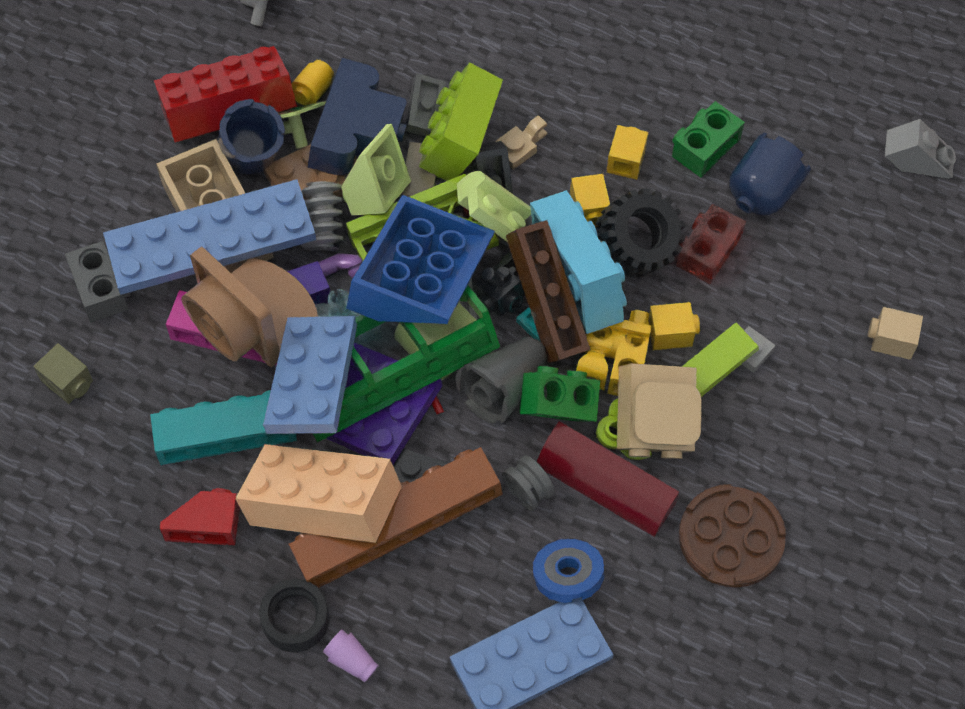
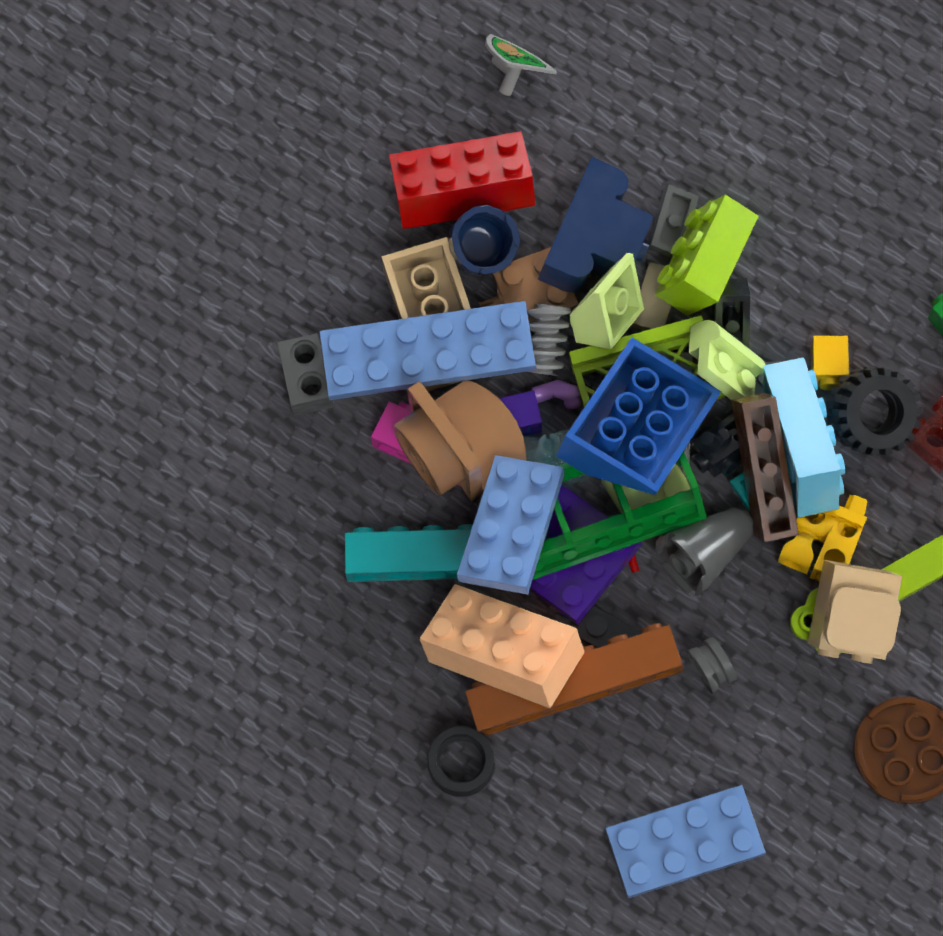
camera: 15 degrees right, 10 degrees up
(63, 374) = (263, 472): olive brick -> none
(204, 519) = (386, 649): red slope -> none
(295, 123) = (528, 219): yellowish green shield -> none
(312, 82) = (556, 176): yellow brick -> none
(350, 656) = (510, 811): lavender cone -> none
(522, 144) = (766, 281): tan plate -> none
(560, 391) = (757, 585): green brick -> none
(565, 554) = (741, 743): blue tile -> none
(607, 479) = (791, 672): dark red brick -> none
(627, 152) = (880, 309): yellow brick -> none
(673, 326) = (890, 517): yellow brick -> none

